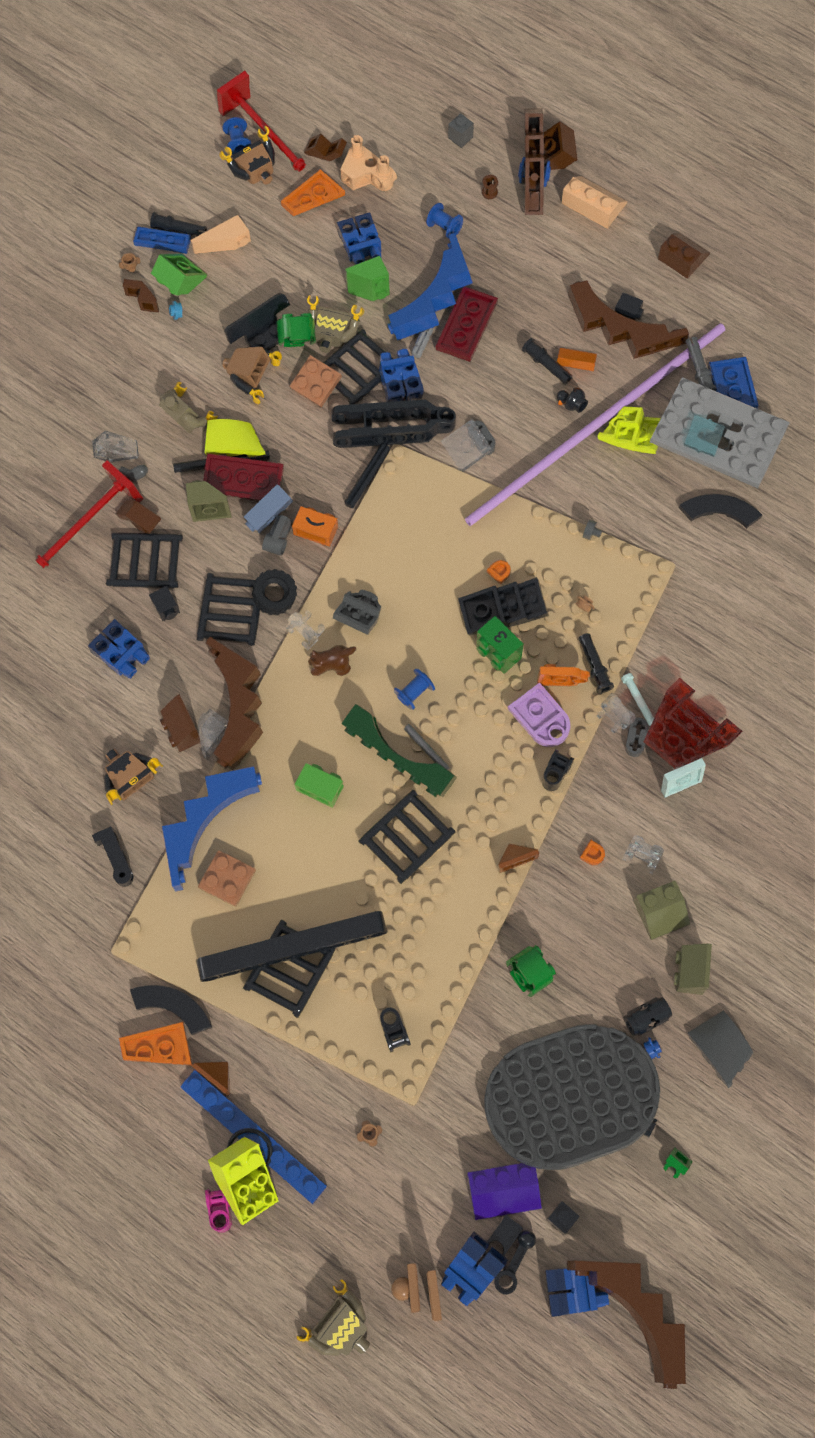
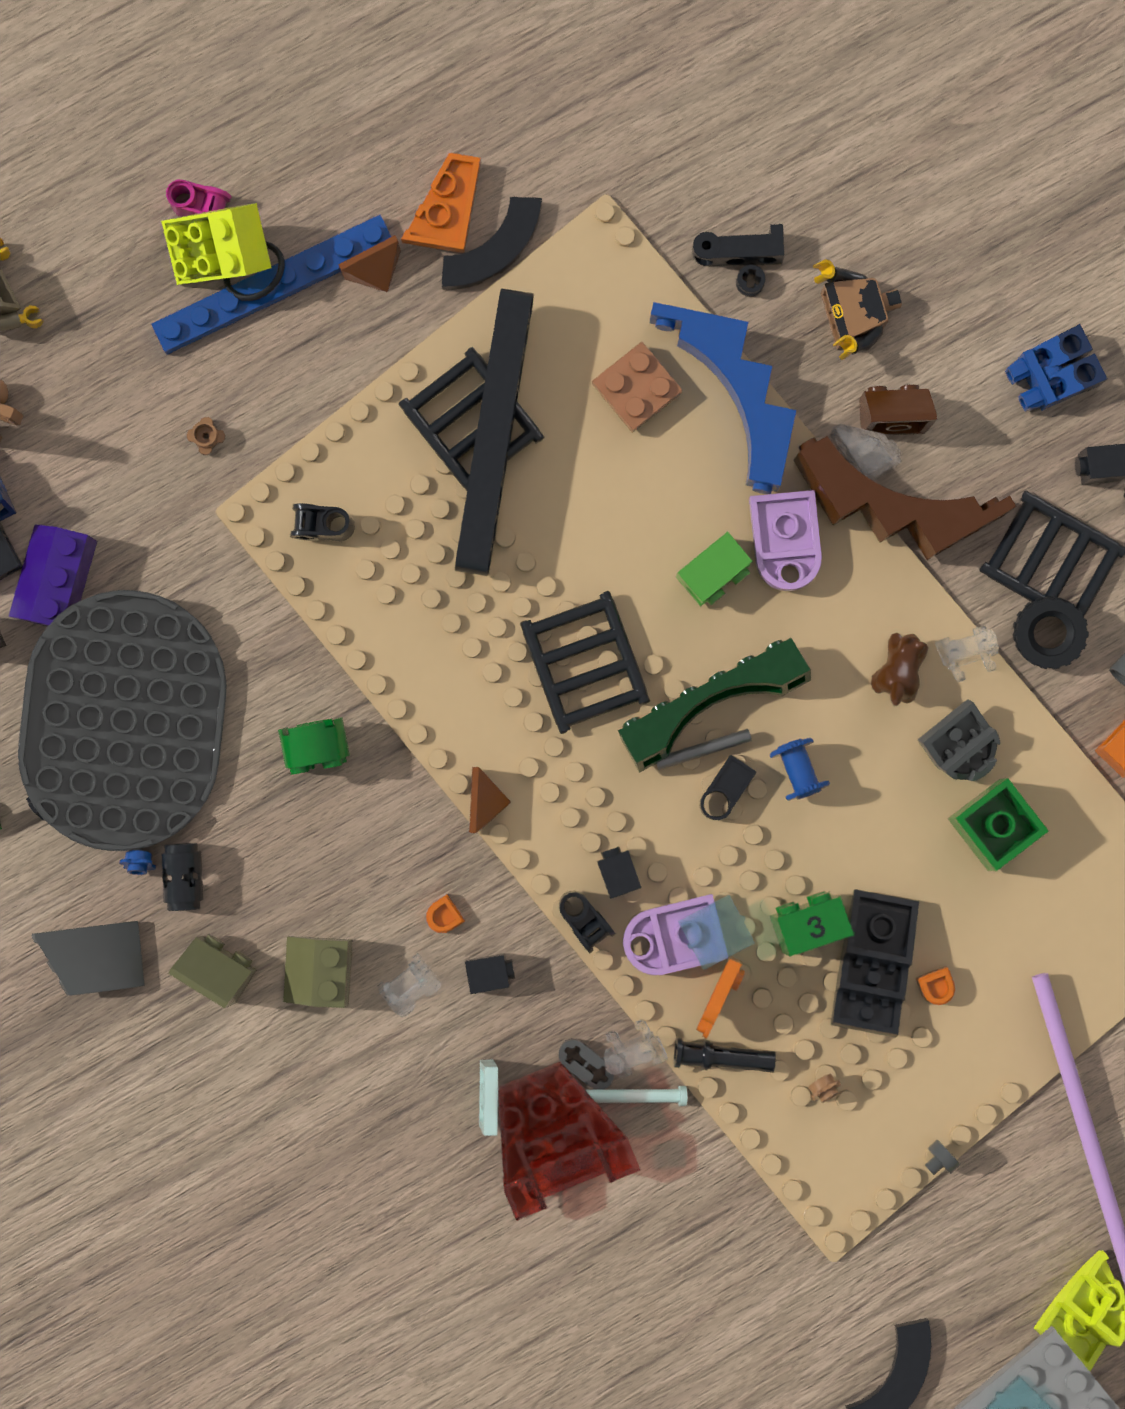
camera: 115 degrees right, 15 degrees up
(127, 839) = (742, 284): none -> black bush
(281, 754) = (785, 535): none -> lavender plate
(396, 573) = (998, 824): none -> green brick
(438, 725) = (730, 781): none -> black piece
(521, 762) = (618, 872): none -> black brick
(528, 694) = (716, 932): none -> clear light blue piece
(613, 811) = (489, 973): none -> black brick

